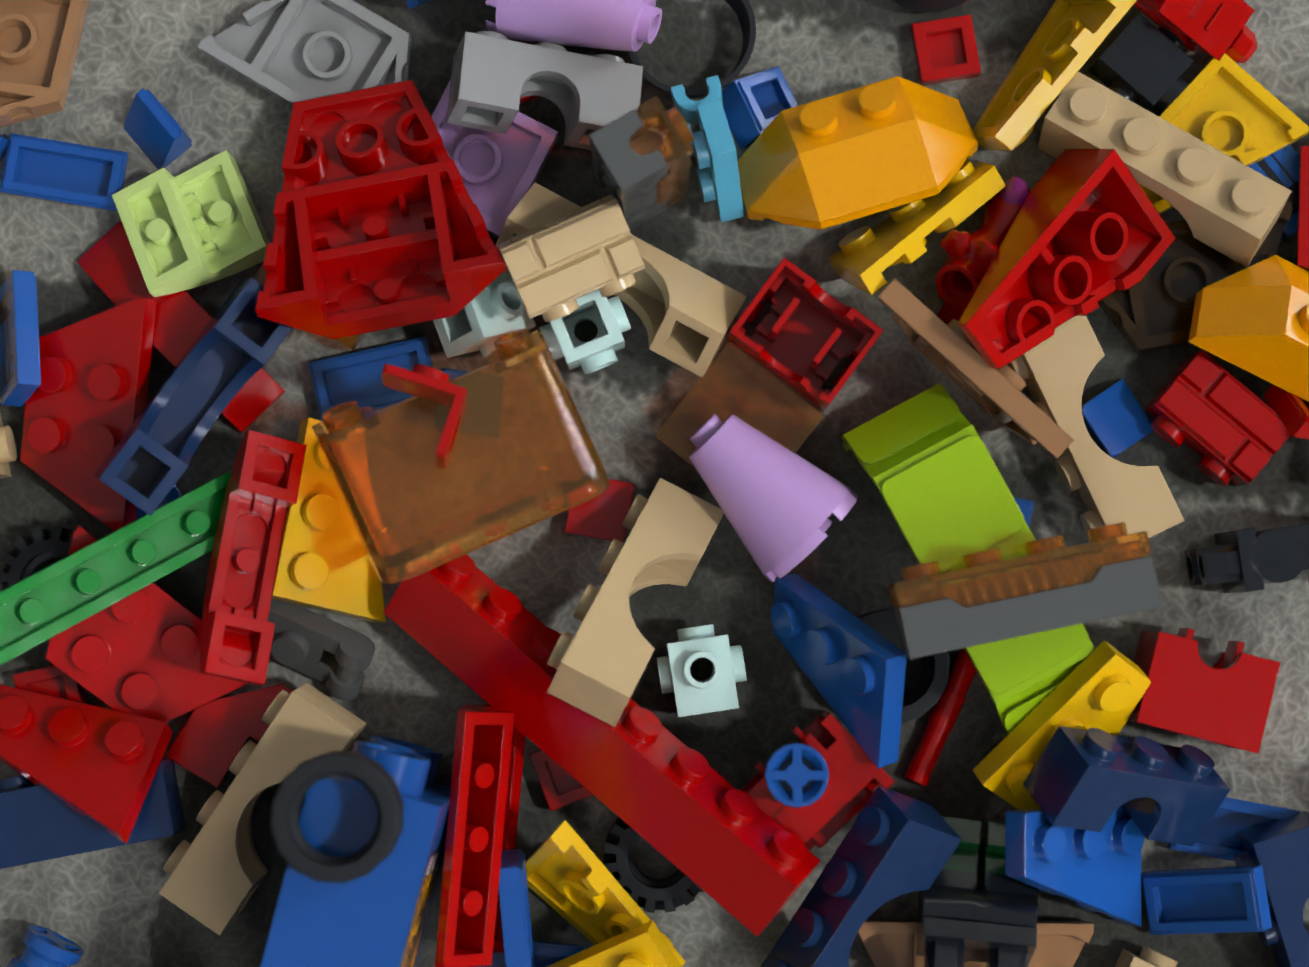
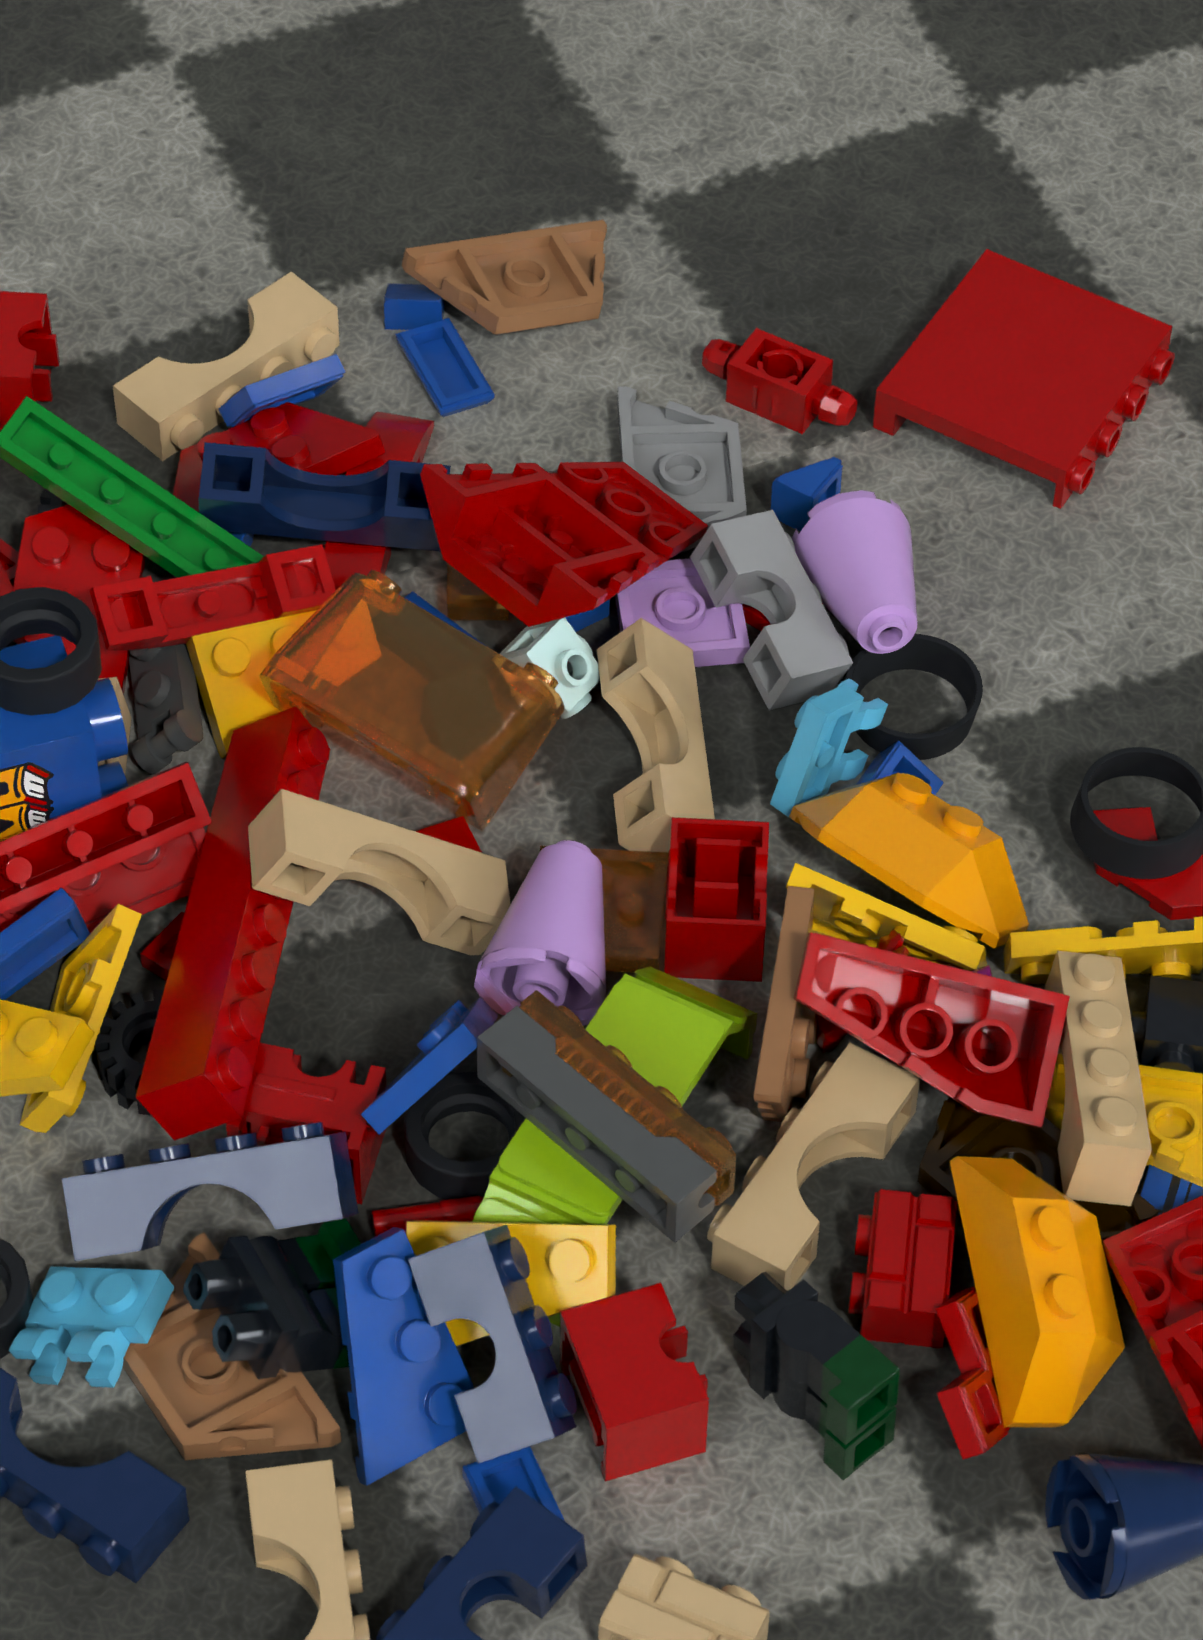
camera: 55 degrees right, 35 degrees down
(155, 130) = (531, 402): blue slope -> none
(192, 225) = (462, 434): yellowish green slope -> none
(433, 386) = (450, 613): red bracket -> none
(572, 258) = (641, 661): tan brick -> none
(595, 354) = (595, 743): light aqua brick -> none
(643, 160) = (757, 662): piece -> none
(708, 695) = (350, 987): light aqua brick -> none
(802, 780) = (320, 1040): blue wheel -> none
(945, 50) = (1063, 889): red tile -> none
(1115, 419) = (838, 1191): blue slope -> none
(1206, 900) = (432, 1502): blue tile -> none

